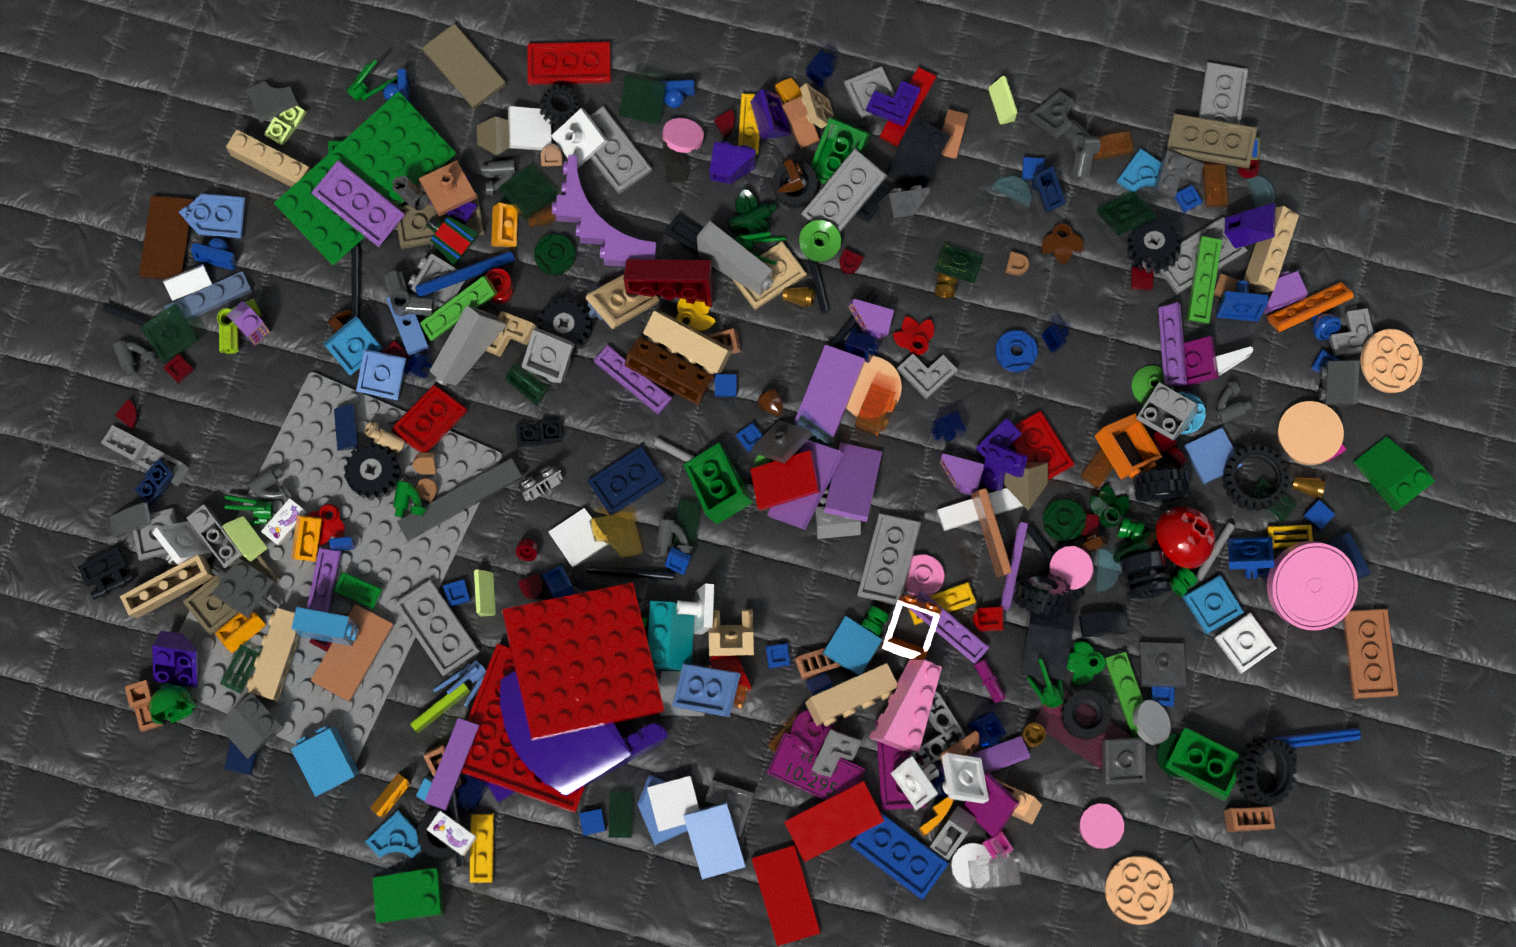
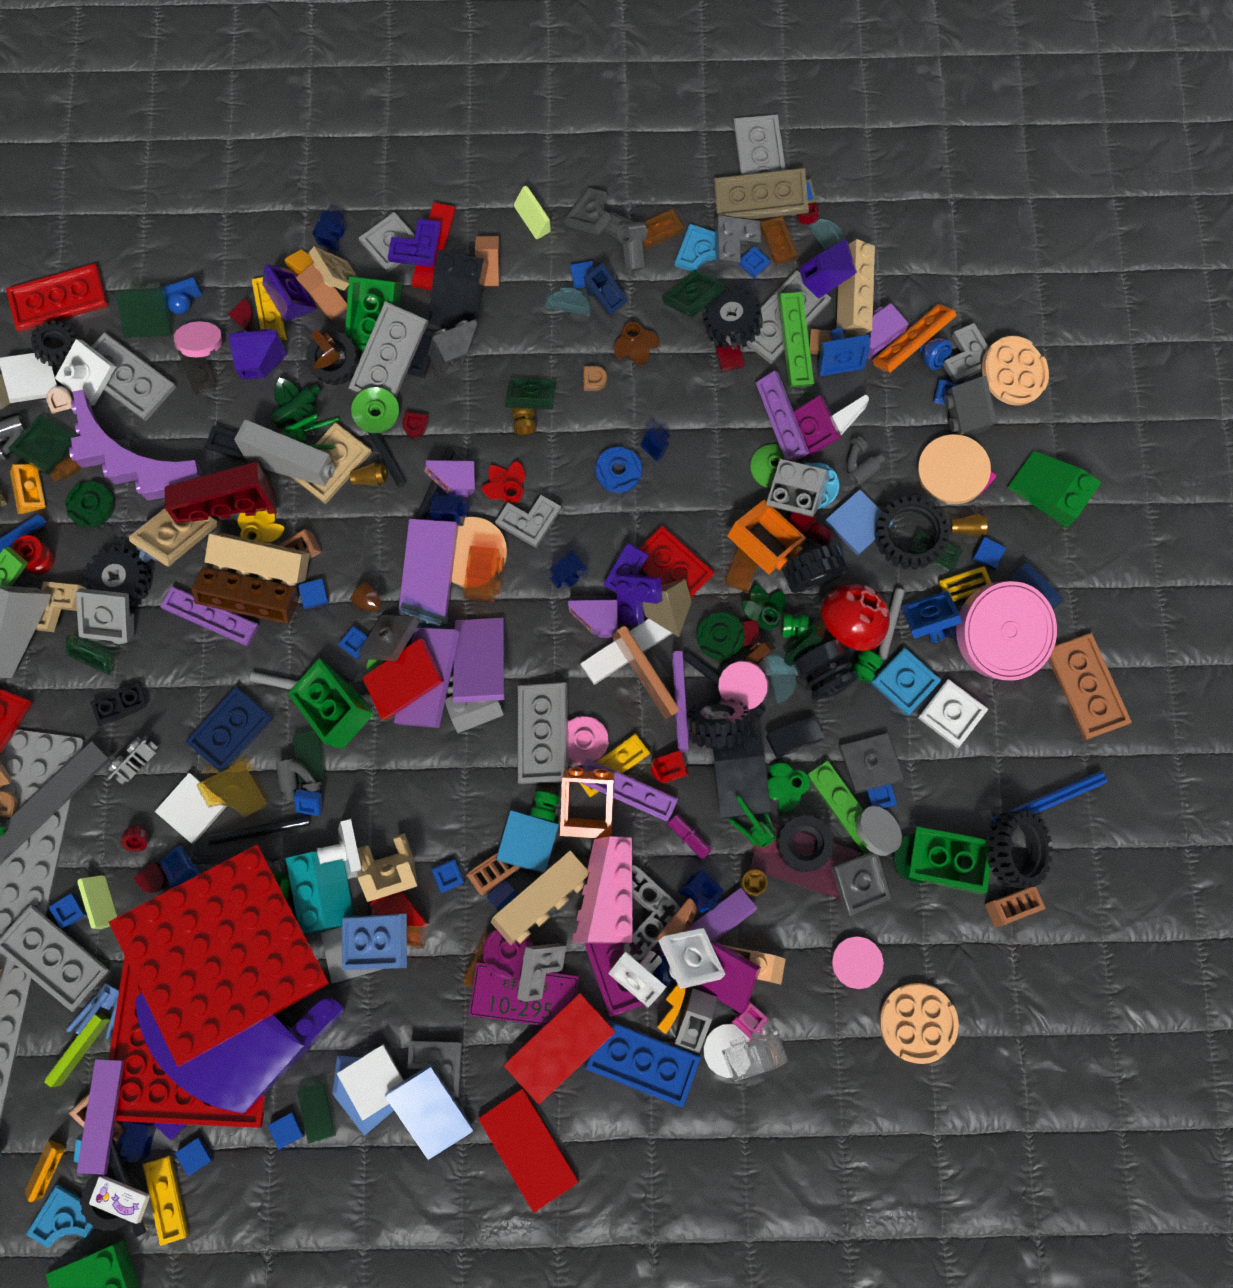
camera: 15 degrees left, 0 degrees up
(513, 820) = (194, 1156): none -> blue tile

